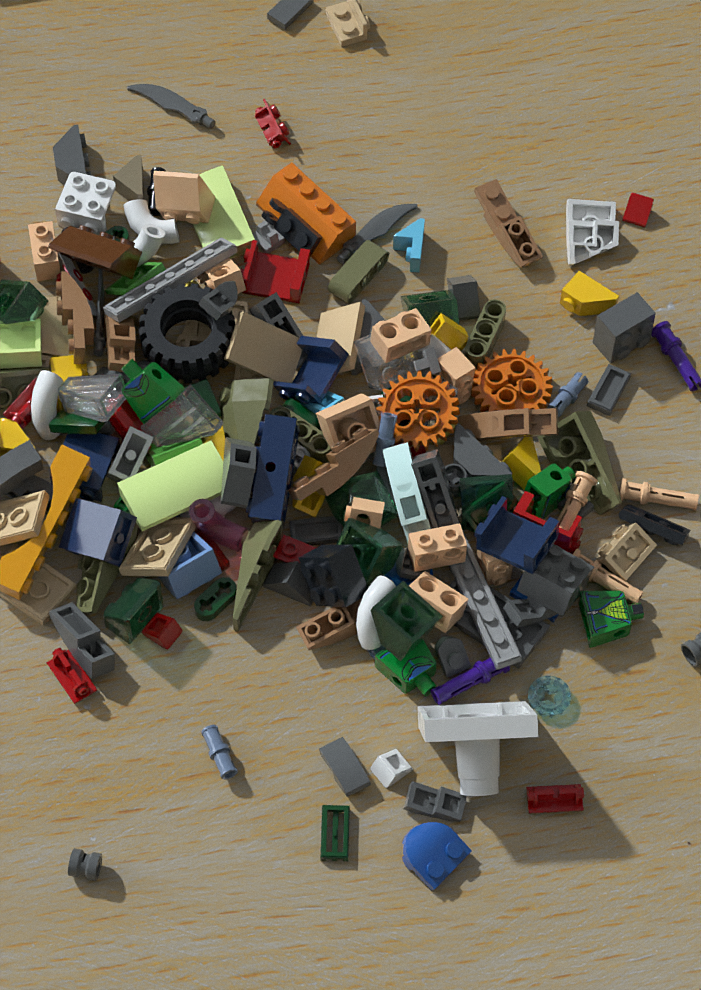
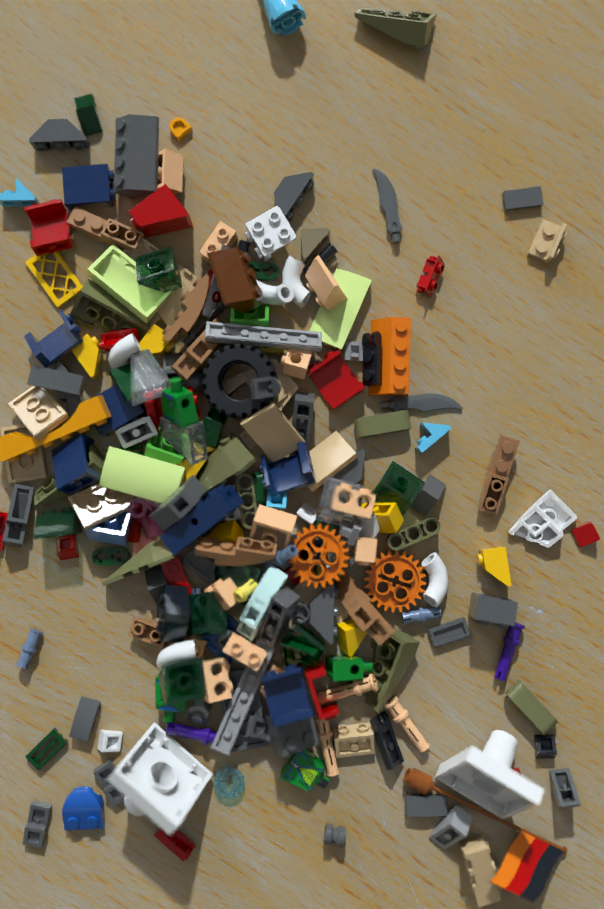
camera: 45 degrees right, 25 degrees up
(381, 492) = (241, 593): none -> light yellow pin
(400, 912) = (37, 824): none -> dark grey slope
(548, 351) = (437, 579): none -> white cylinder

